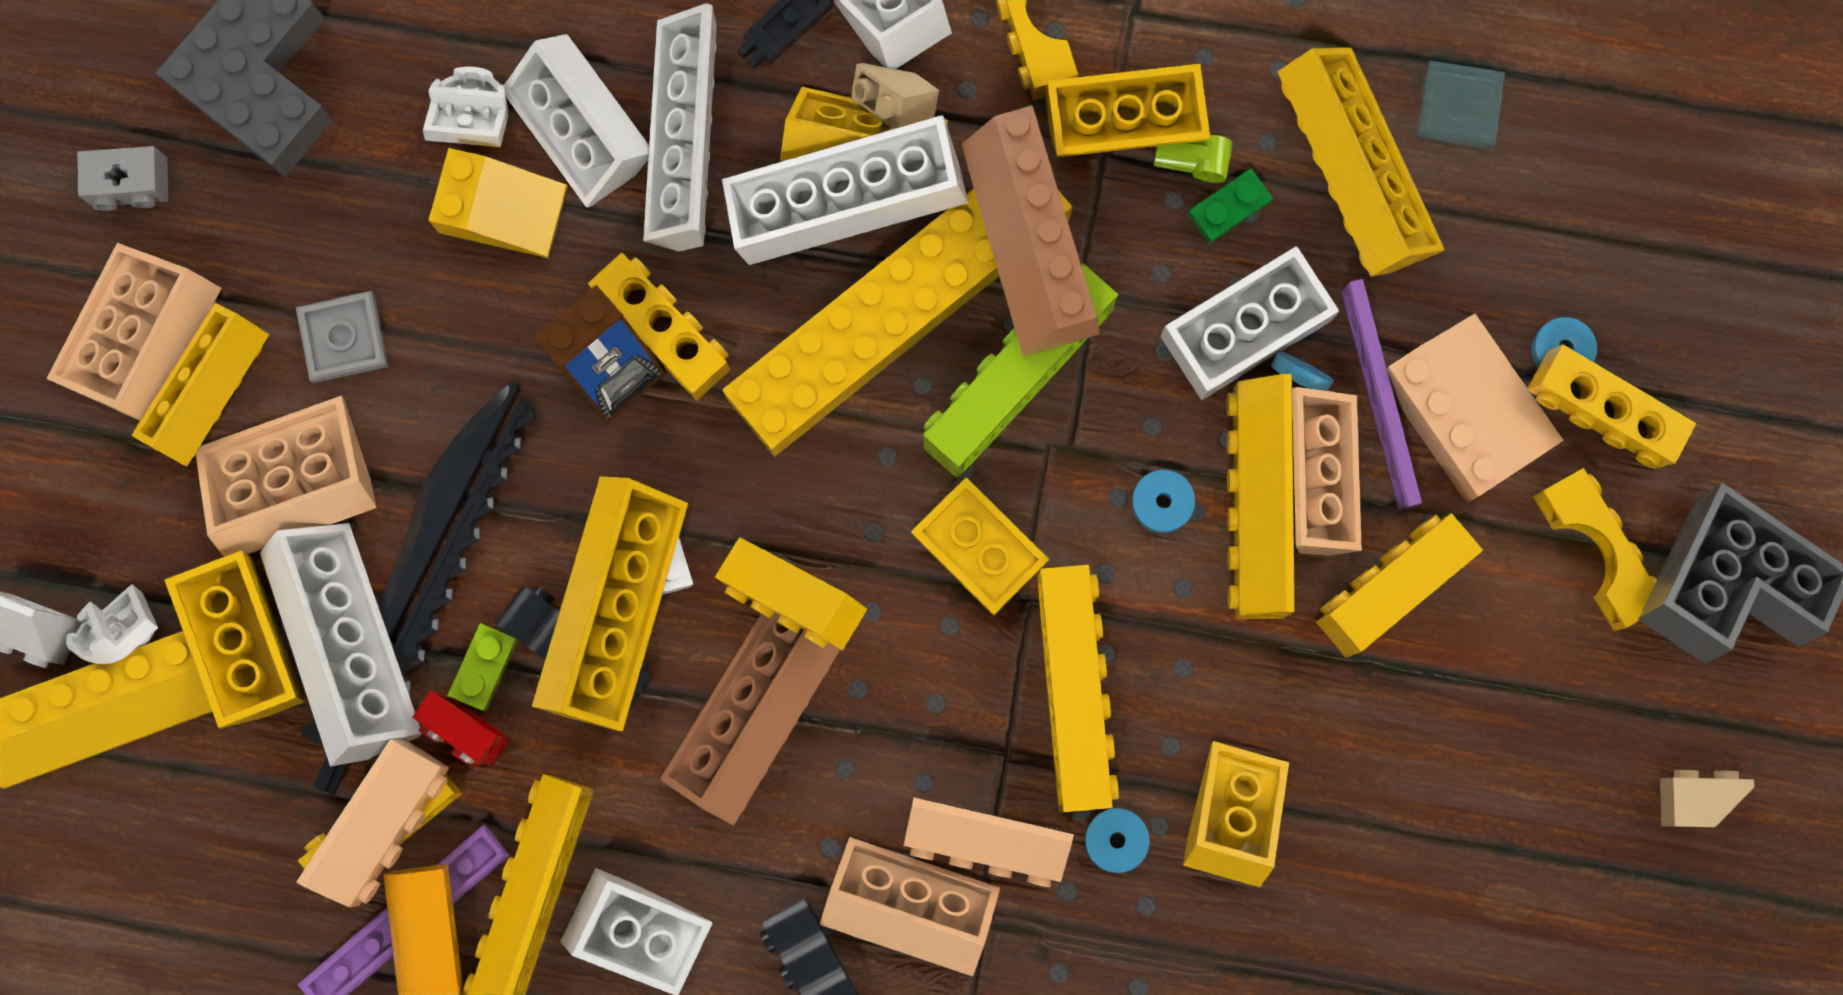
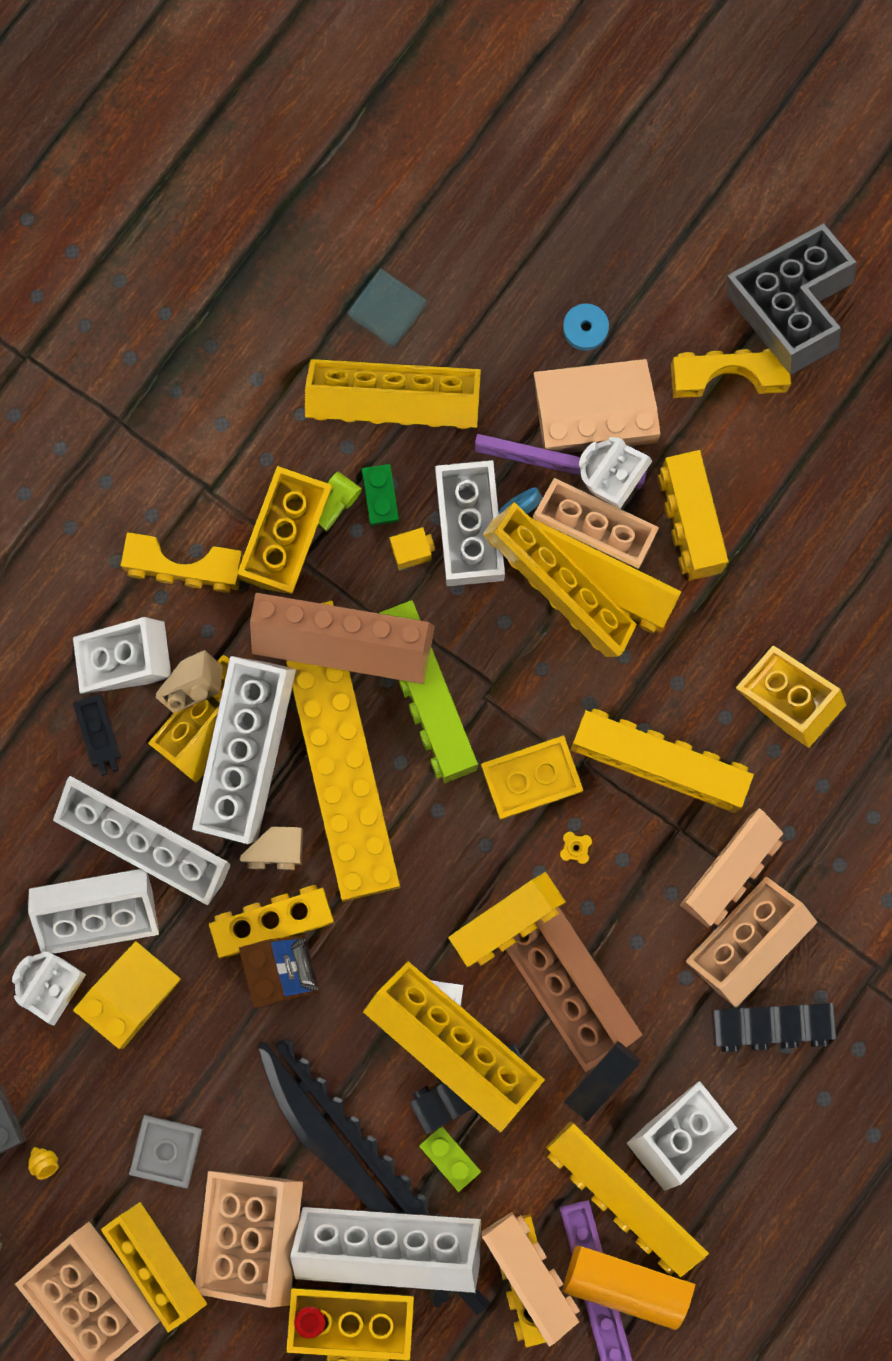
camera: 65 degrees left, 0 degrees up
(210, 589) = (309, 1322): none -> red tile
(264, 205) = (42, 1163): none -> yellow plate
(452, 723) = (490, 1189): red piece -> none
(654, 803) = (602, 1081): none -> black tile
(751, 288) = (276, 846): none -> tan slope
(913, 632) = (579, 855): none -> yellow plate
(1135, 840) = (784, 783): dark azure piece -> none
(1167, 484) = (559, 653): dark azure piece -> none
(1184, 272) = (412, 548): none -> yellow brick
(1233, 460) = (560, 580): none -> yellow slope
(1403, 458) = (612, 469): none -> white slope
(1665, 427) = (673, 290): yellow brick -> none

